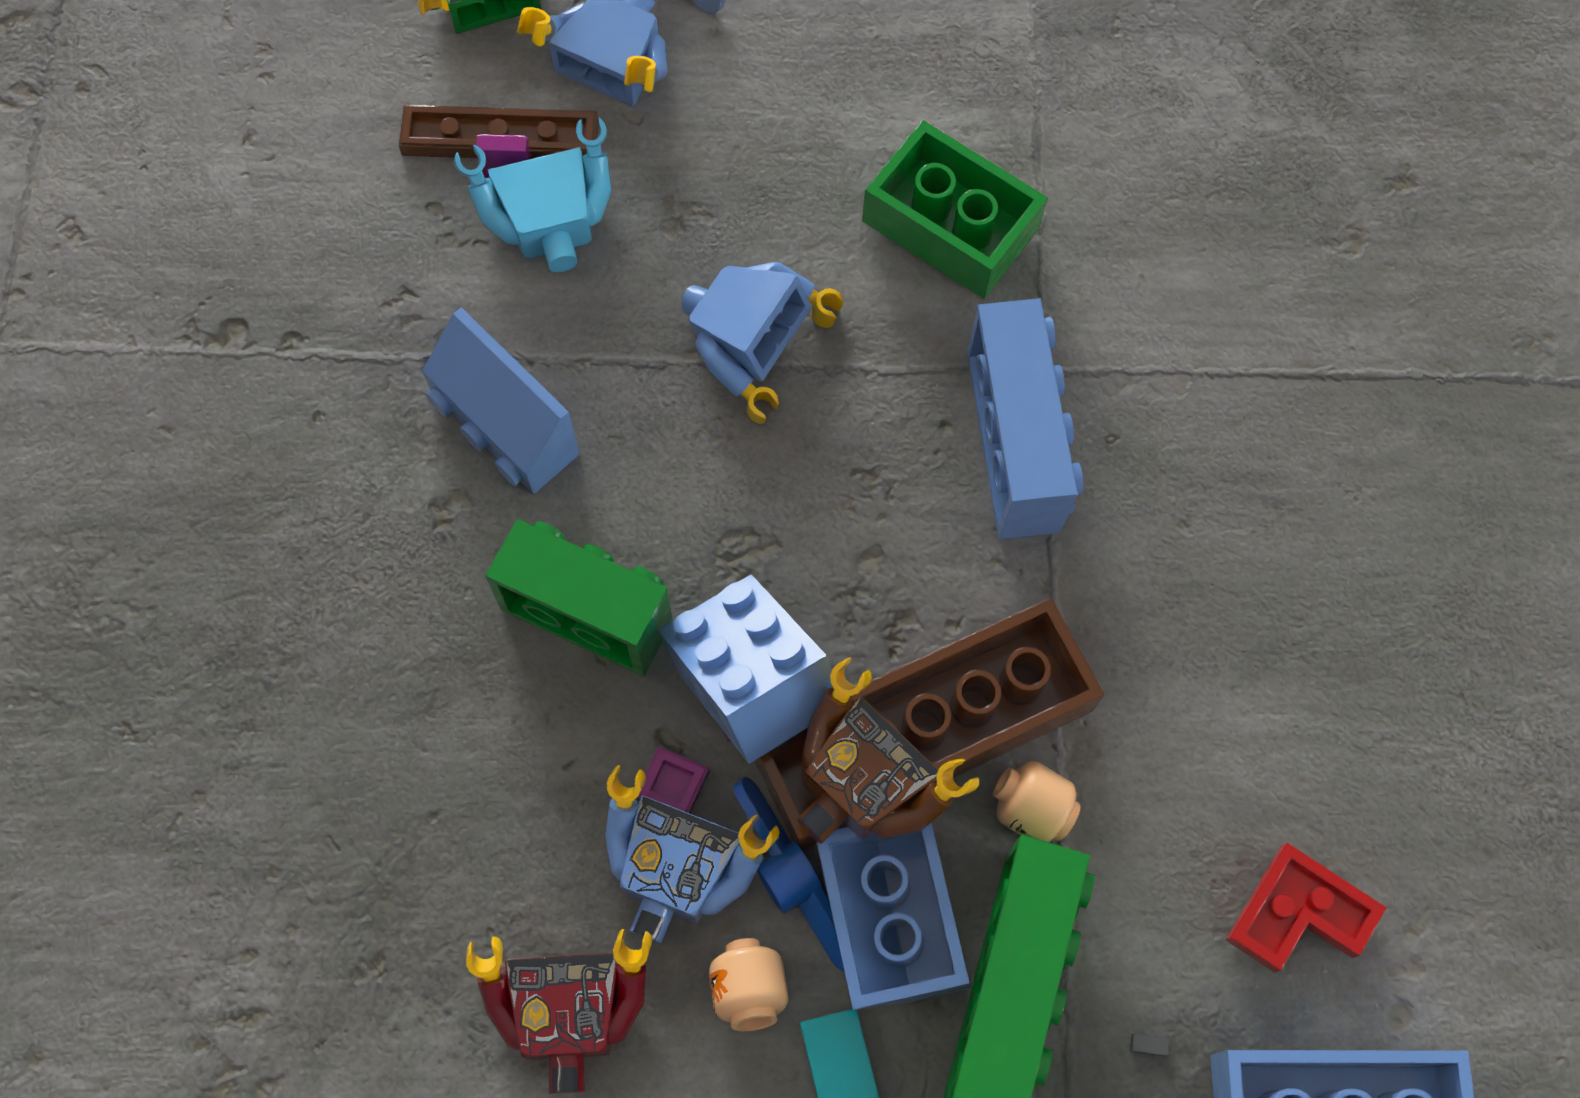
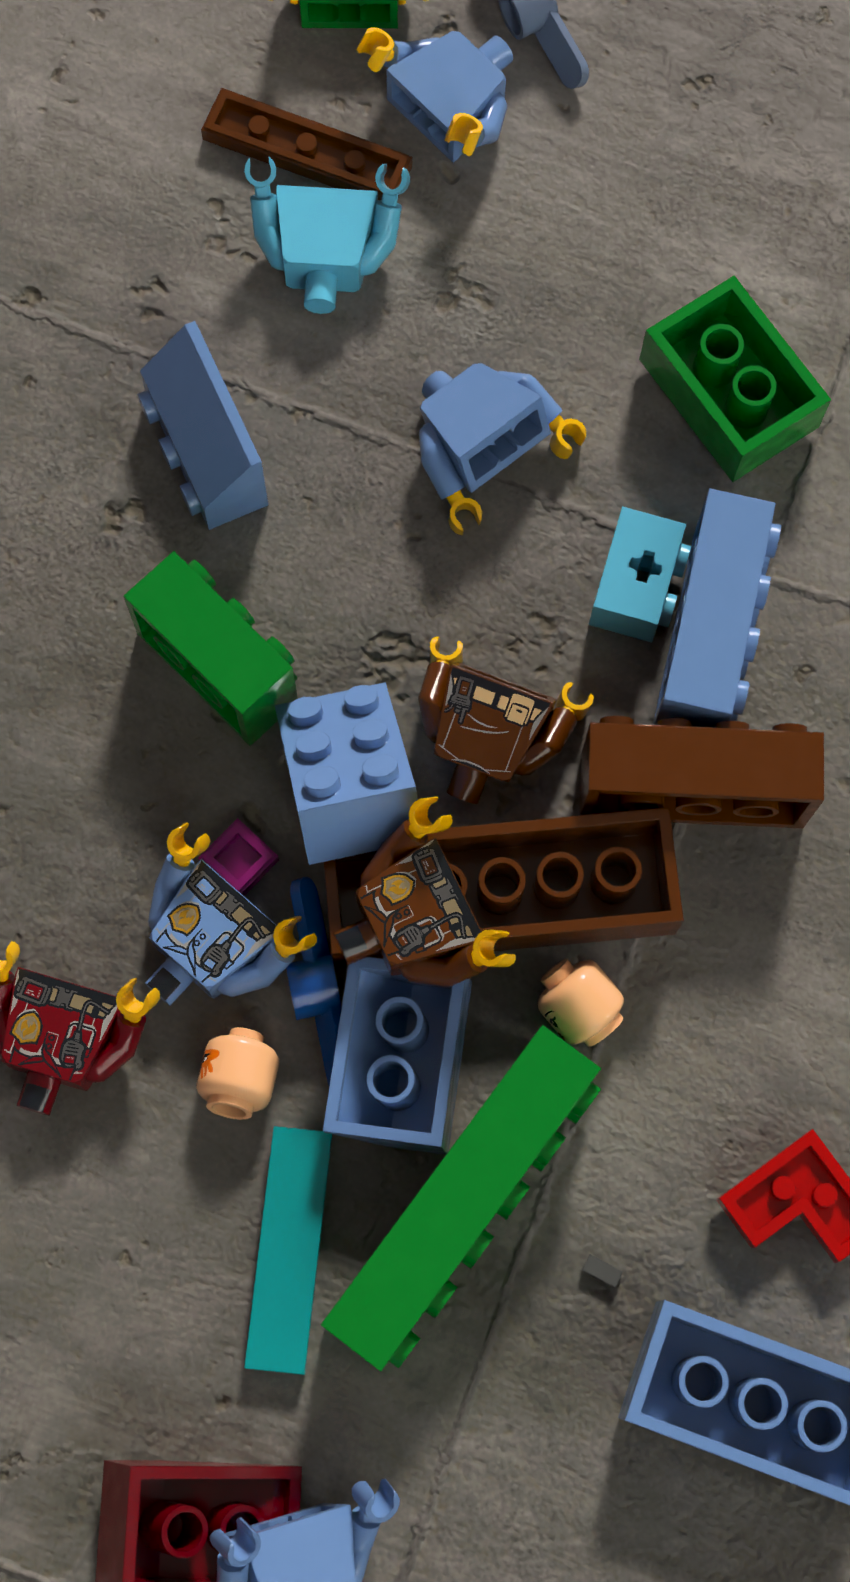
camera: 20 degrees right, 5 degrees up
(503, 150) = (300, 169): magenta tile -> none
(857, 579) = (490, 723): none -> reddish brown torso
(924, 380) = (646, 545): none -> medium azure brick
(1065, 556) = (703, 771): none -> reddish brown brick

